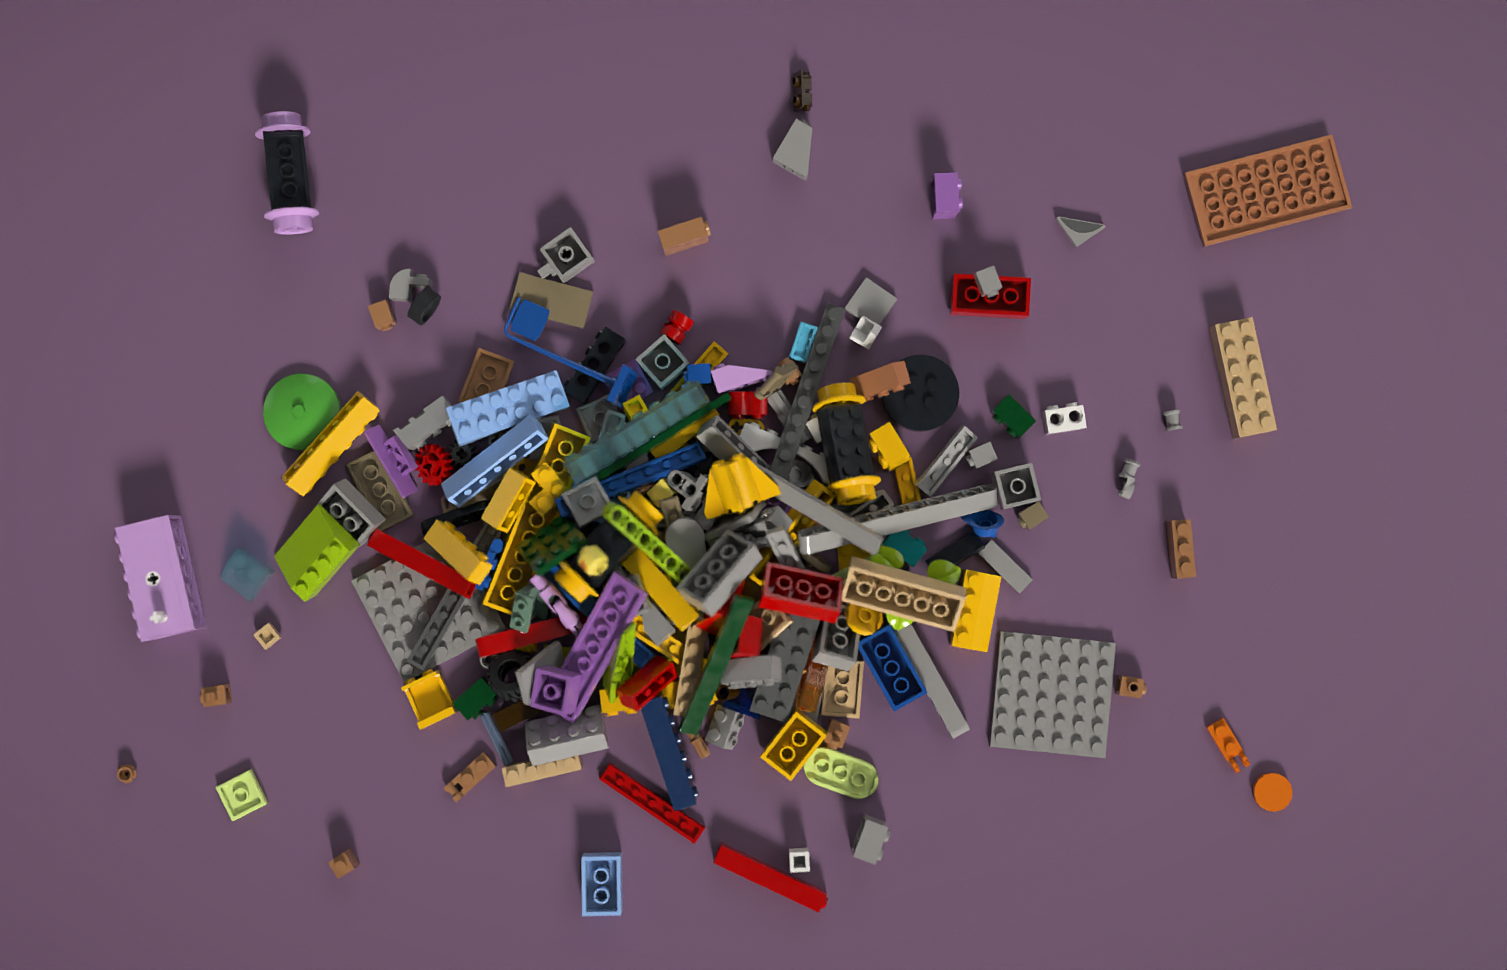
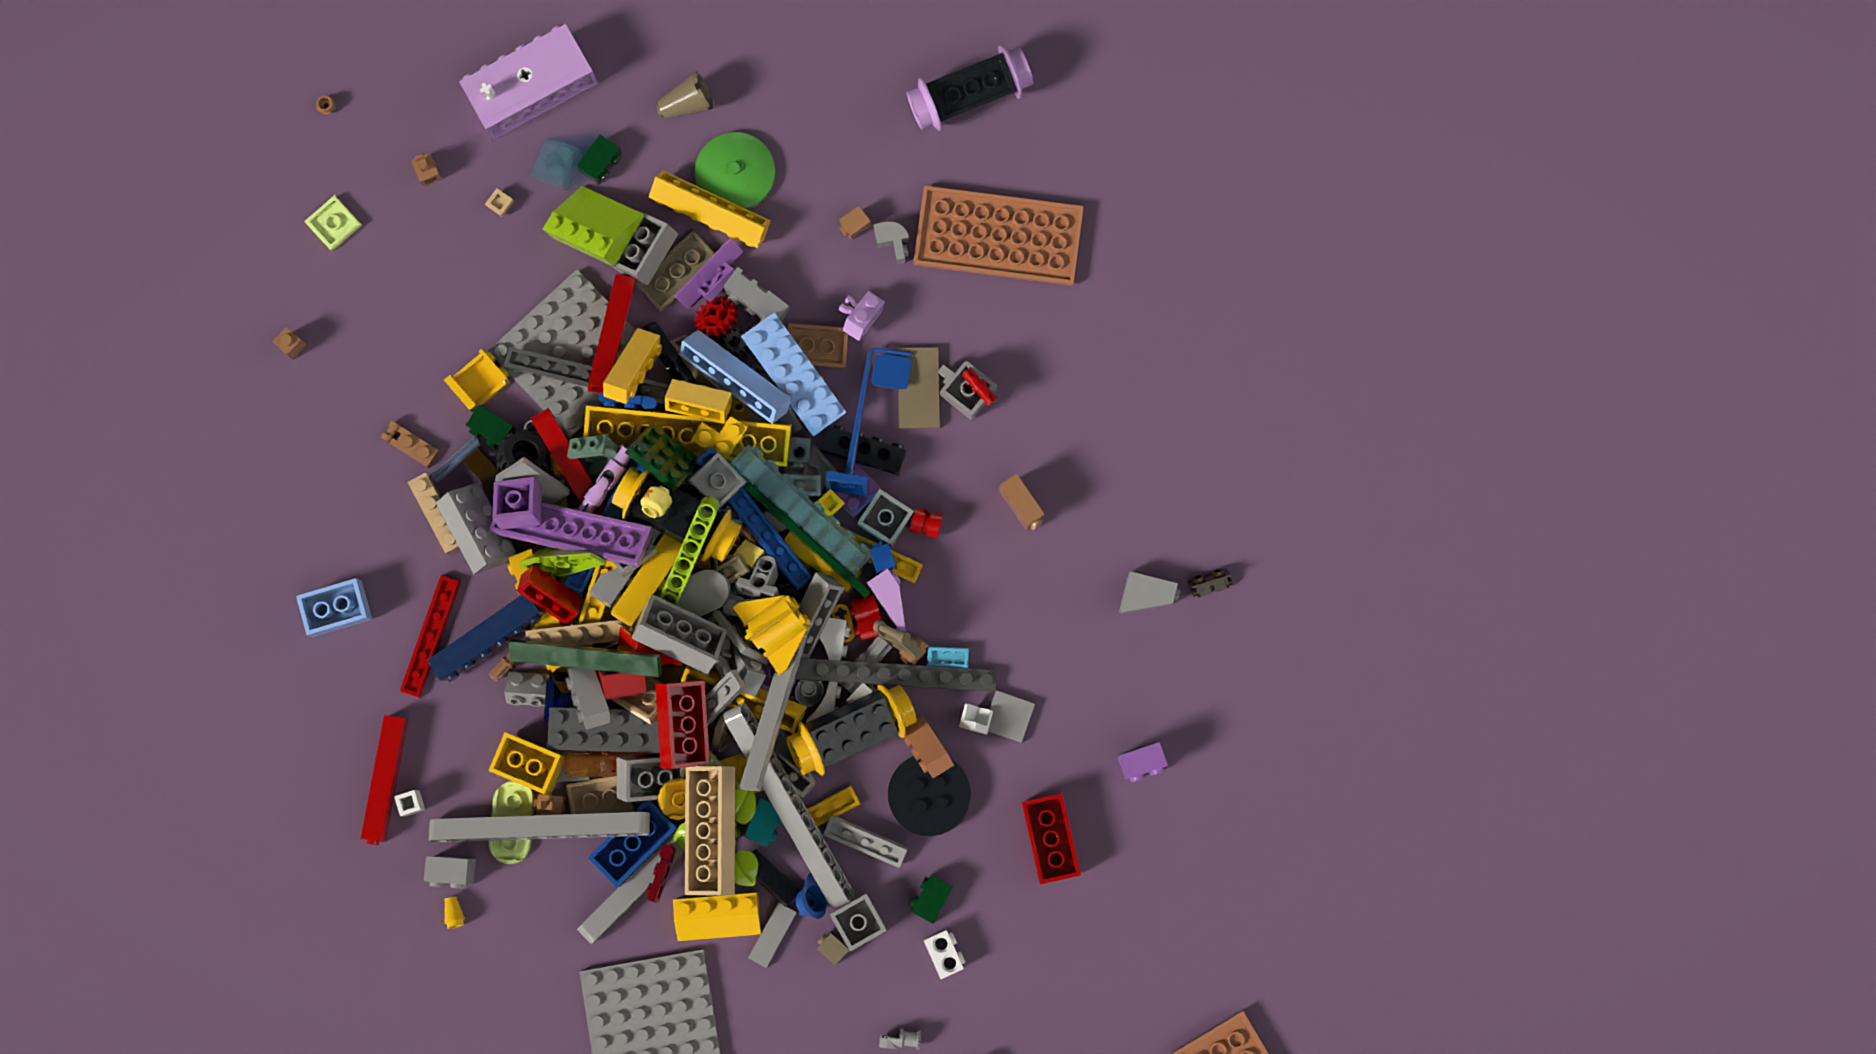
camera: 75 degrees right, 5 degrees down
(220, 437) = (686, 98): none -> dark tan cone
(254, 532) = (599, 159): none -> dark green brick
(424, 306) = (874, 261): black tyre -> none
(432, 188) = (998, 235): none -> nougat plate
(469, 331) = (861, 314): none -> lavender brick
(568, 242) = (979, 386): none -> red pin
(572, 422) = (800, 444): none -> dark grey brick
(854, 747) = (539, 827): none -> light grey beam
(889, 447) = (861, 776): yellow brick -> none
(908, 846) = (453, 914): none -> yellow cone
(925, 649) = (661, 873): none -> dark red hinge
(981, 455) = (881, 876): light grey brick -> none
(988, 282) = (1061, 830): light grey brick -> none
(1078, 230) = (1149, 915): tile -> none

